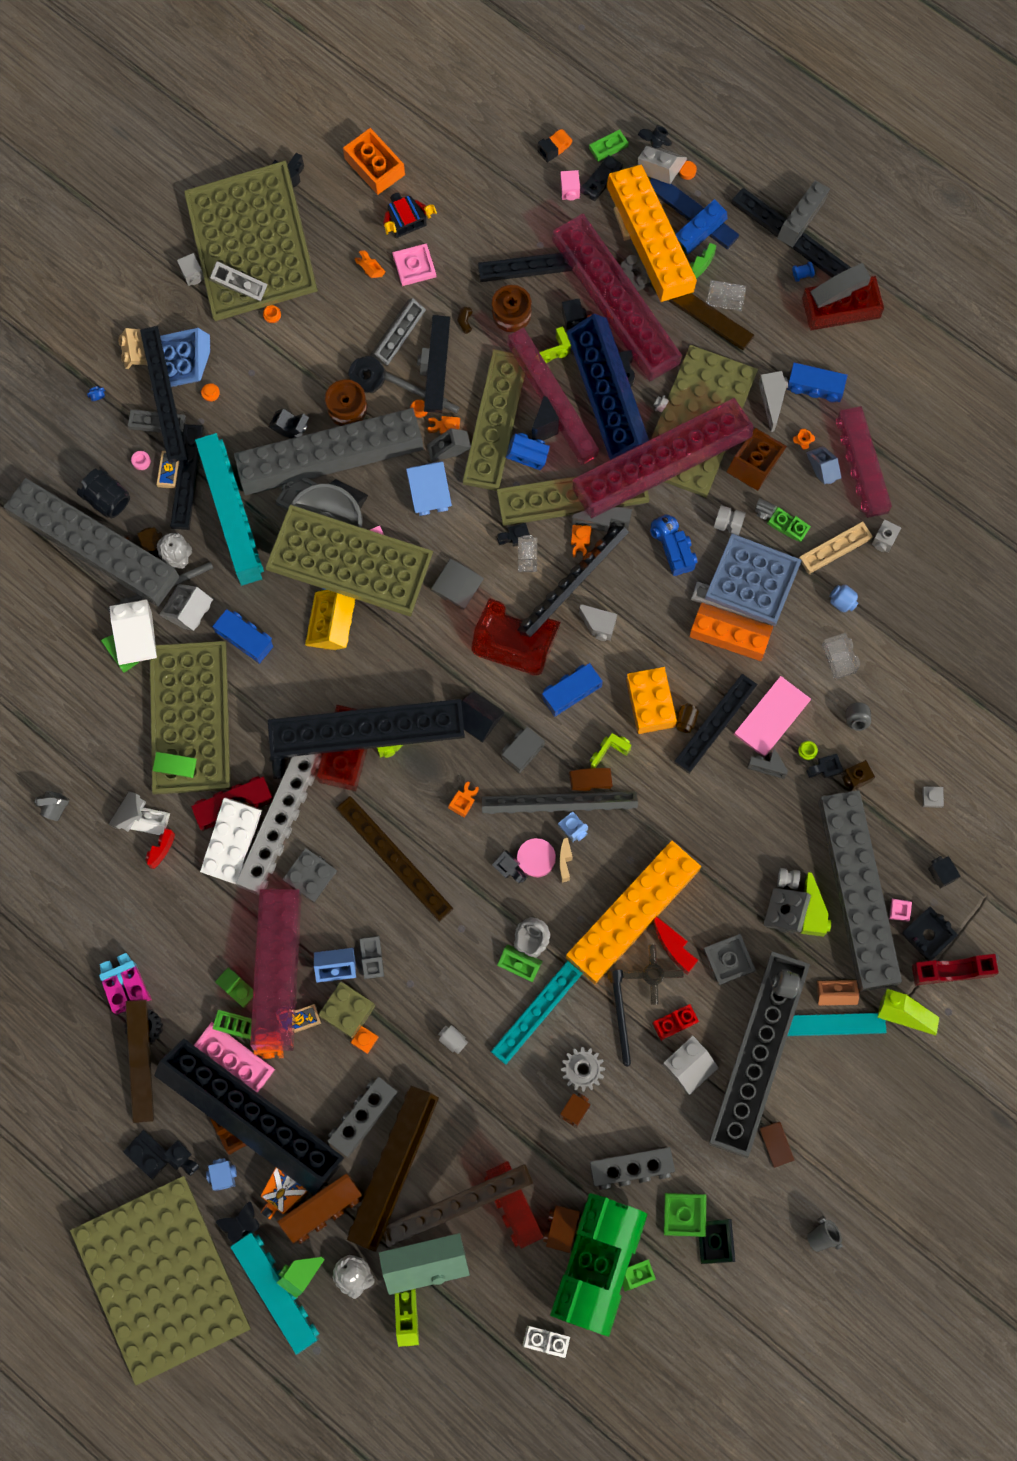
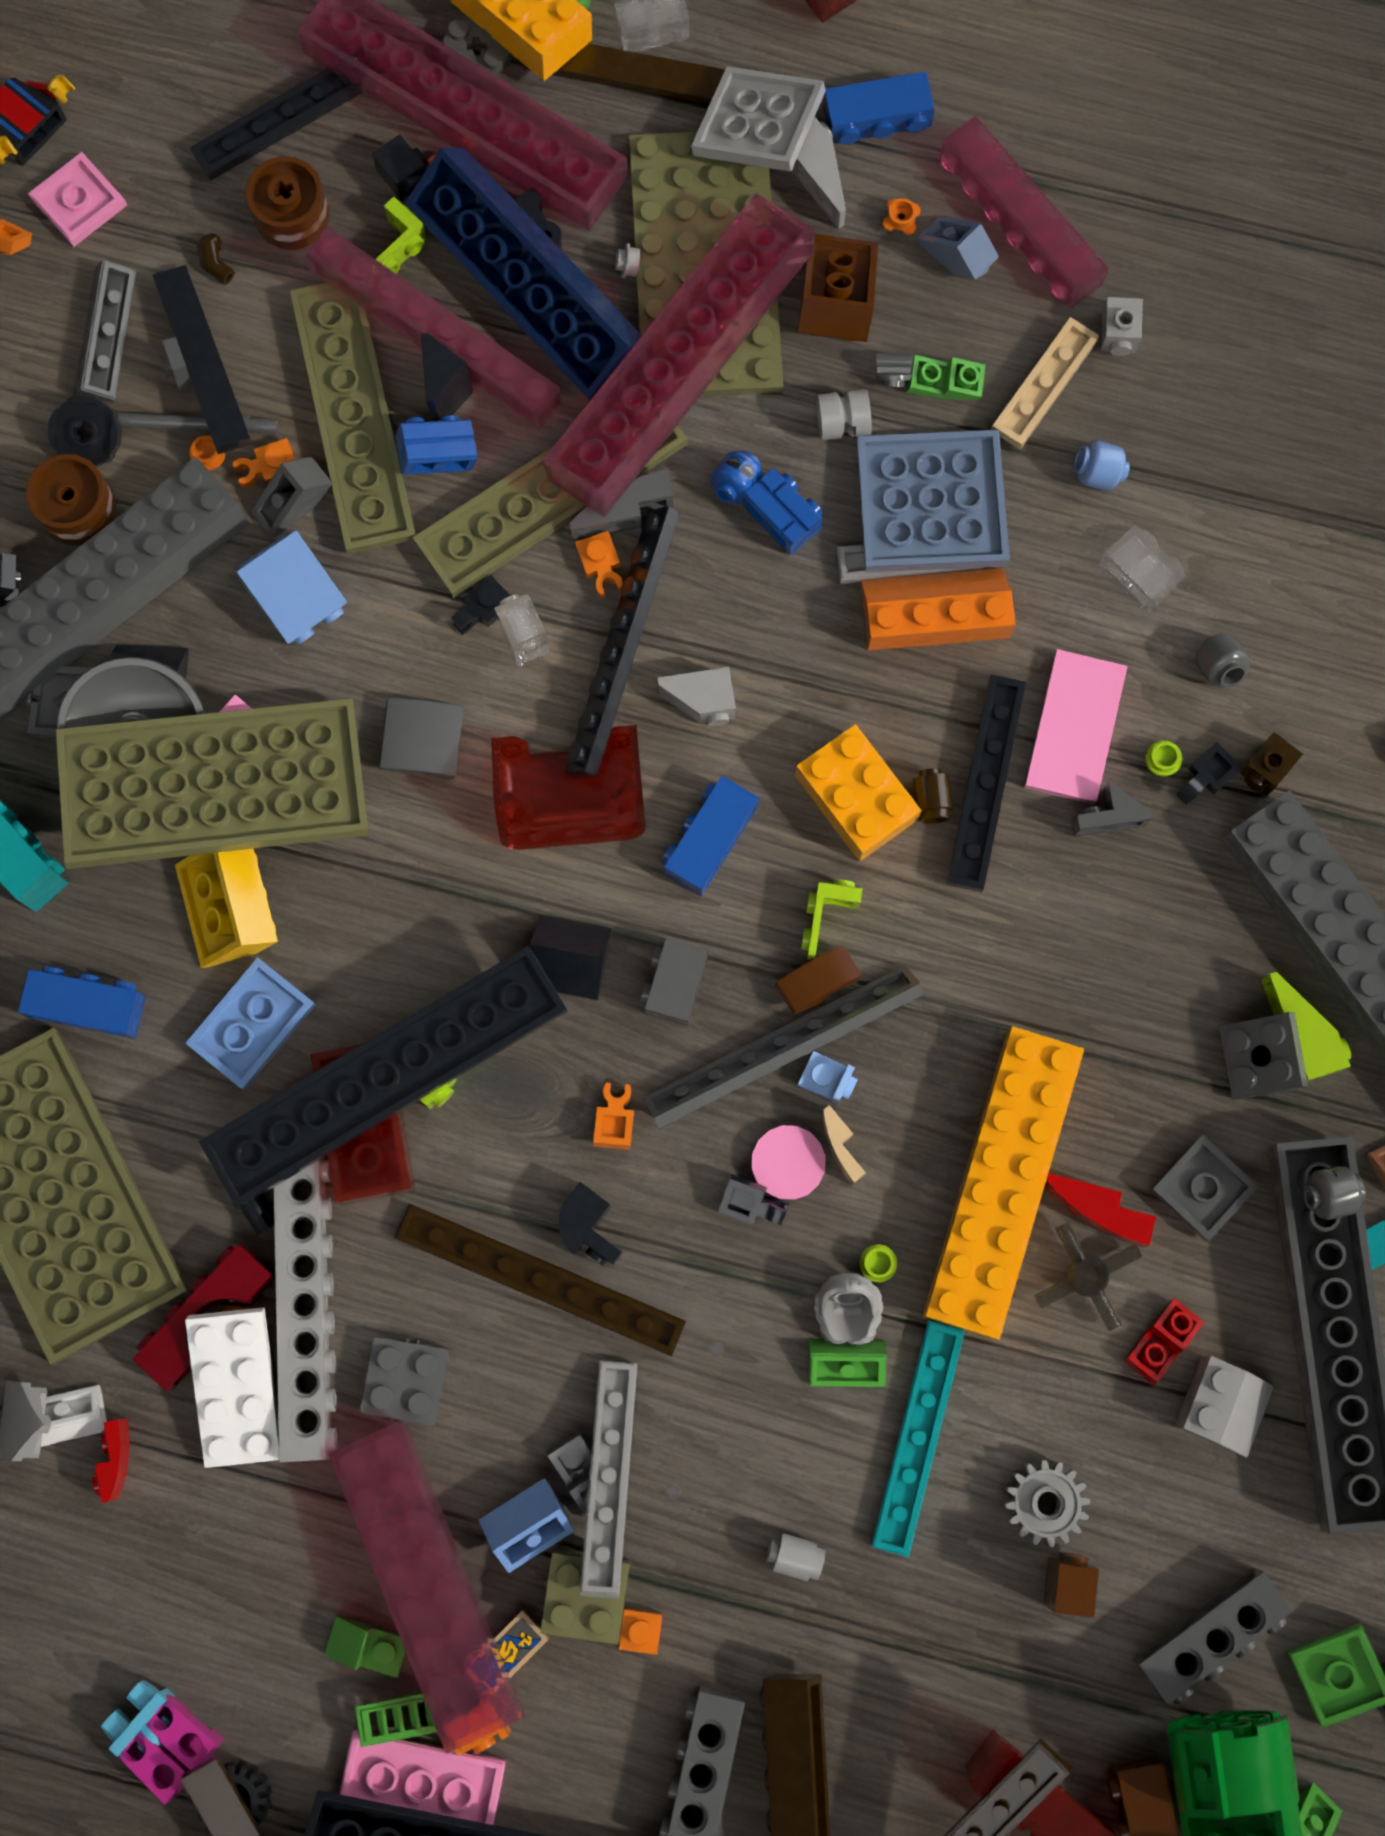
camera: 25 degrees left, 5 degrees up
(174, 764) = (67, 1298): bright green slope -> none
(316, 680) = (250, 1024): none -> medium blue plate
(382, 961) = (608, 1480): none -> light grey tile
(424, 839) = (577, 1222): none -> black brick
(556, 923) = (878, 1263): none -> lime plate
(616, 979) = (1027, 1314): black piece -> none
(754, 363) = (758, 118): none -> light grey plate
(791, 879) = (1240, 998): light grey wheel -> none

